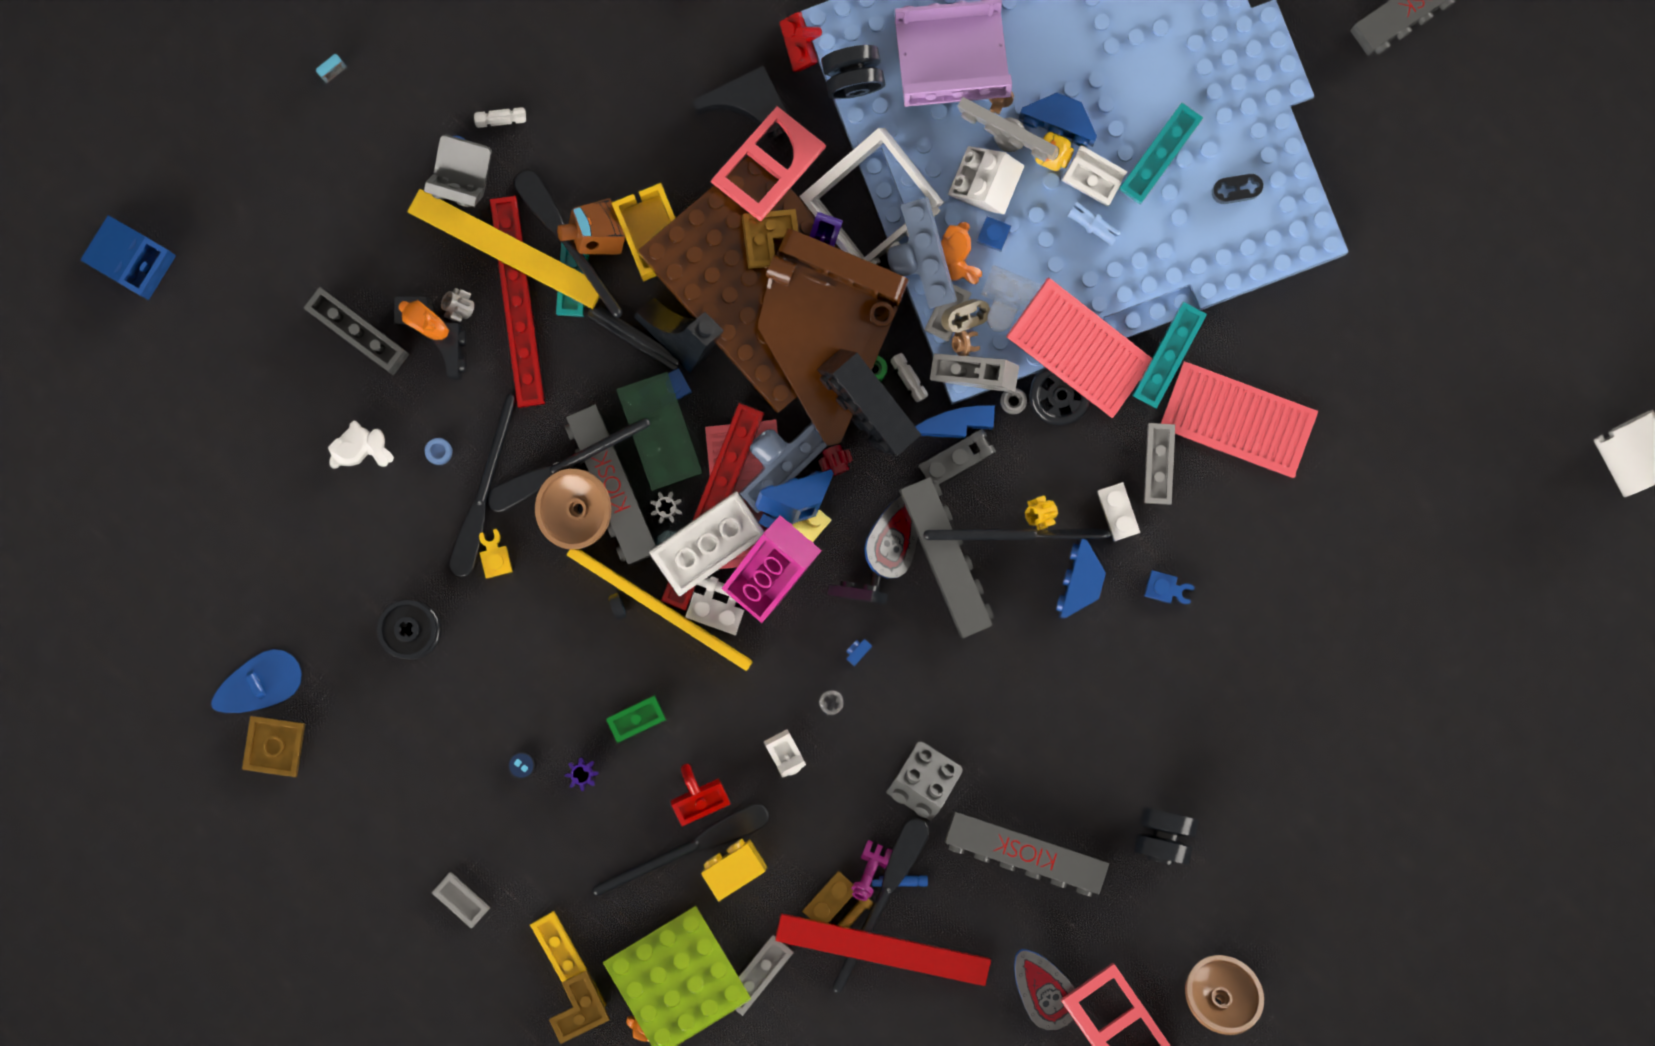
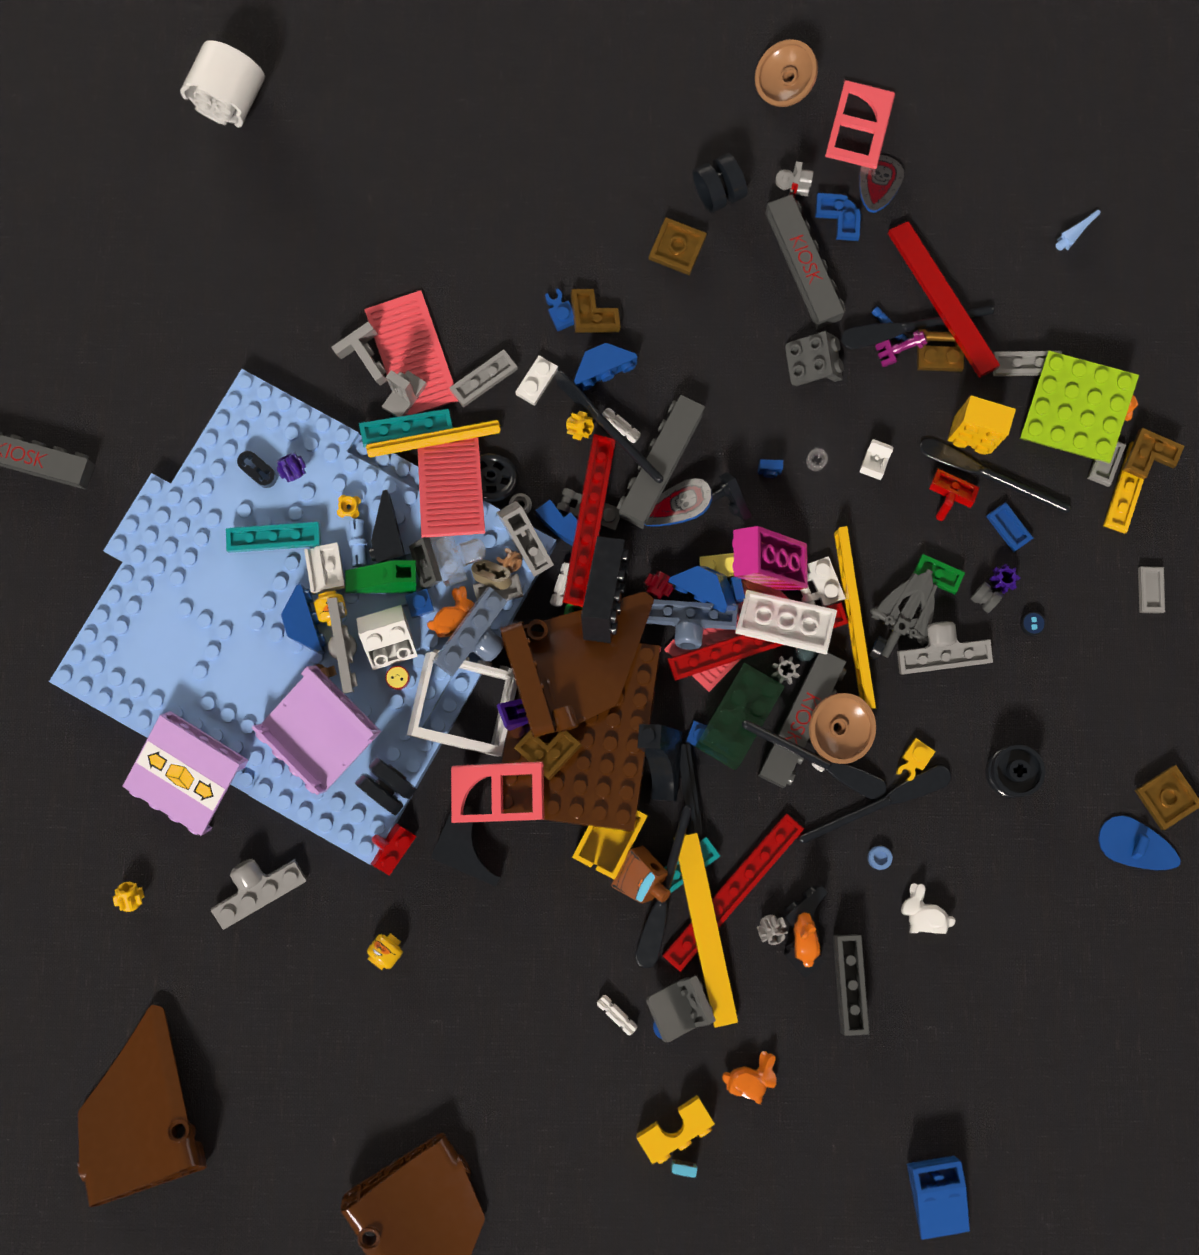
camera: 130 degrees left, 5 degrees down
(349, 181) = (752, 1082): none -> orange animal
(367, 64) = (660, 1144): none -> yellow arch
(564, 662) = (944, 651): none -> light grey plate
(580, 742) = (985, 596): none -> dark grey wheel
(597, 954) = (1104, 472): none -> light grey tile
(624, 823) = (1009, 527): none -> blue tile
(636, 687) = (920, 591): none -> dark grey bar
(942, 161) = (397, 677): none -> light yellow tile
(947, 447) = (589, 519): none -> red tile
(1012, 552) = (622, 425): none -> white axle
(1025, 266) = (426, 563): none -> dark grey plate
(1042, 217) = (384, 577): none -> green slope
(1044, 935) = (840, 208): none -> blue plate
(1077, 252) = (386, 535): none -> black slope
(1109, 908) = (797, 182): none -> light grey hips
(1135, 235) = (348, 500): none -> yellow plate
(1135, 607) = (588, 317): none -> pearl gold plate
(1138, 370) = (432, 438): none -> yellow axle
(1139, 748) = (677, 246): none -> pearl gold plate
(1204, 379) = (405, 391): none -> light grey bracket
(1212, 218) = (291, 467): none -> dark purple gear
(1273, 374) = (356, 342): none -> light grey bracket

